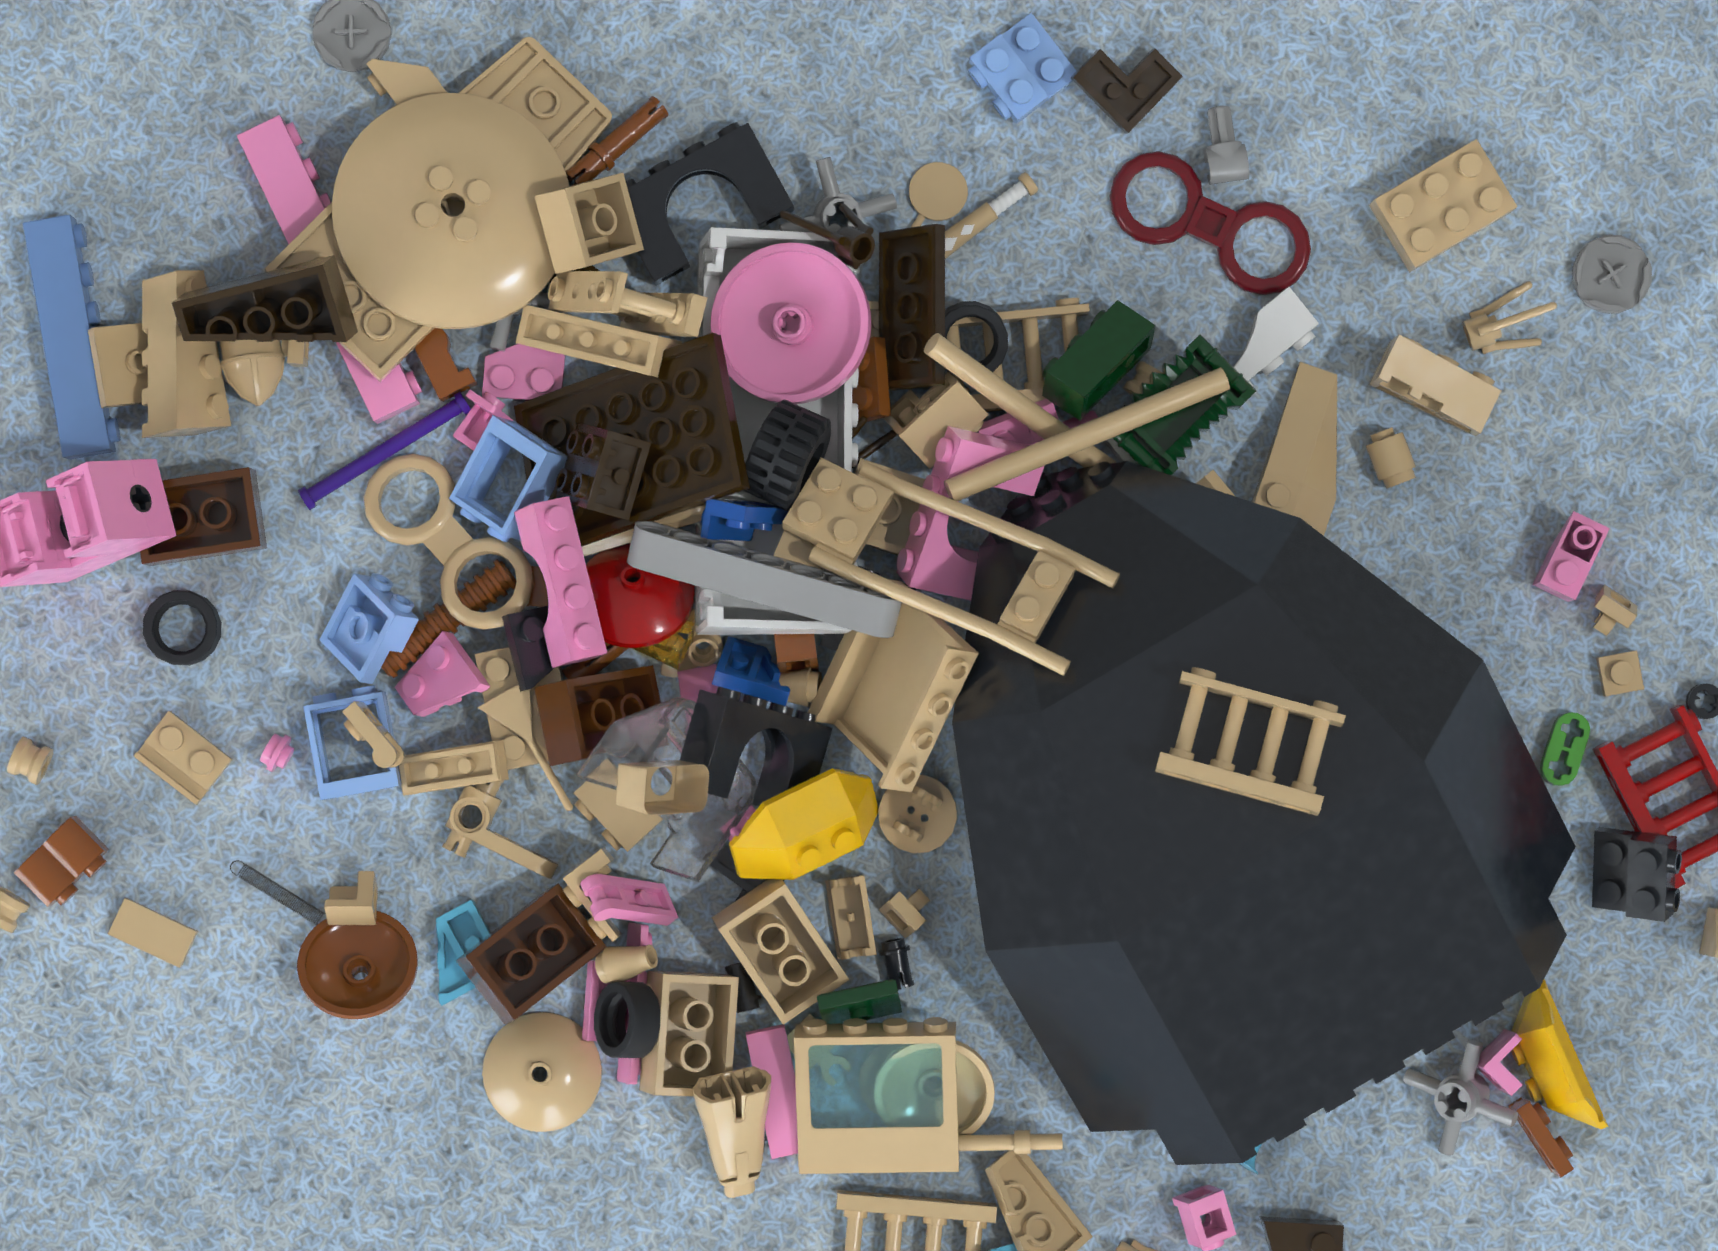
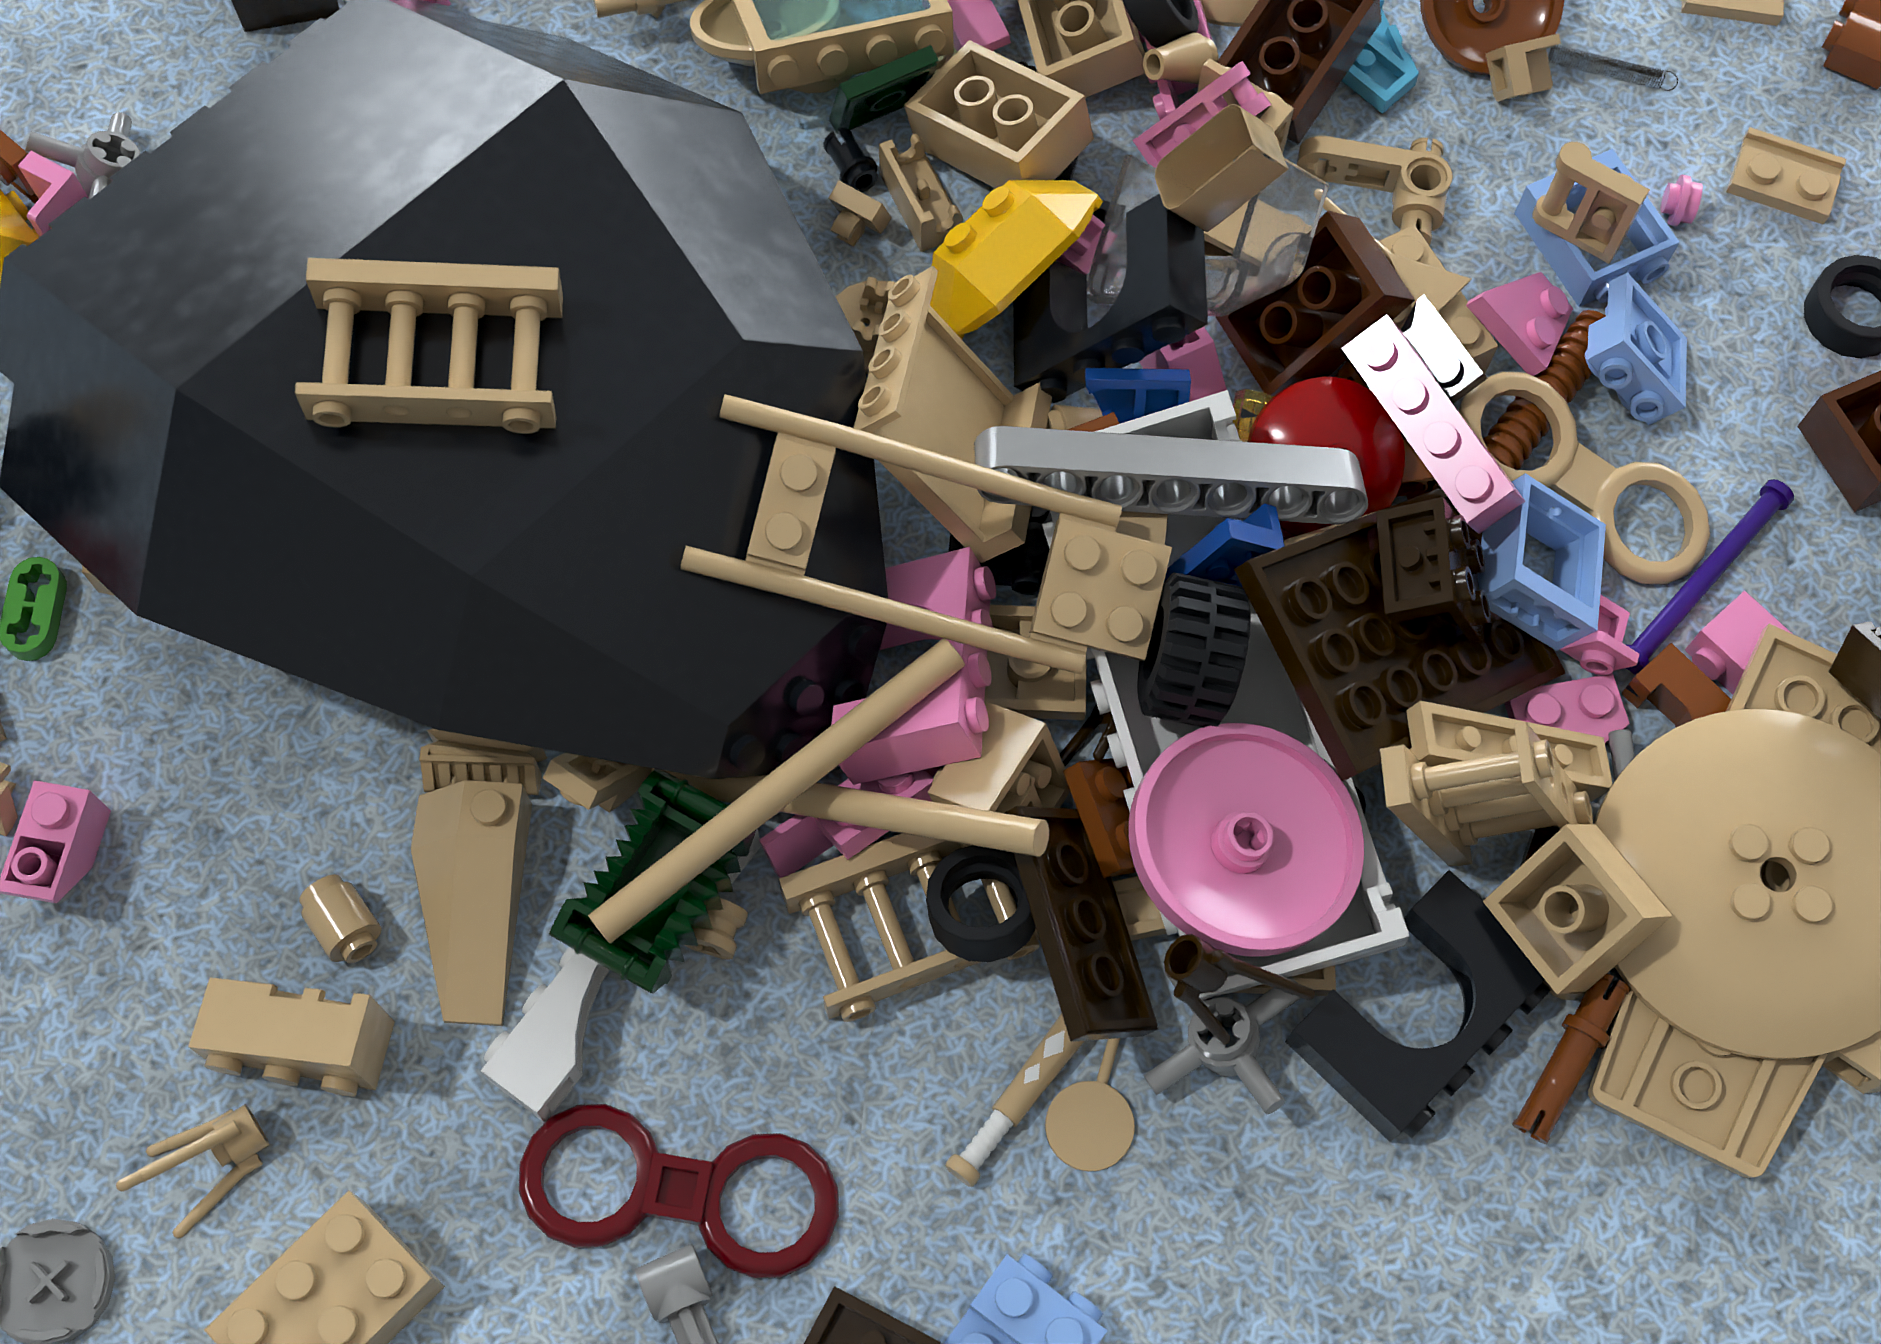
camera: 165 degrees right, 20 degrees down
(453, 767) = (1467, 223): tan tile -> none
(1097, 359) = (793, 926): dark green brick -> none

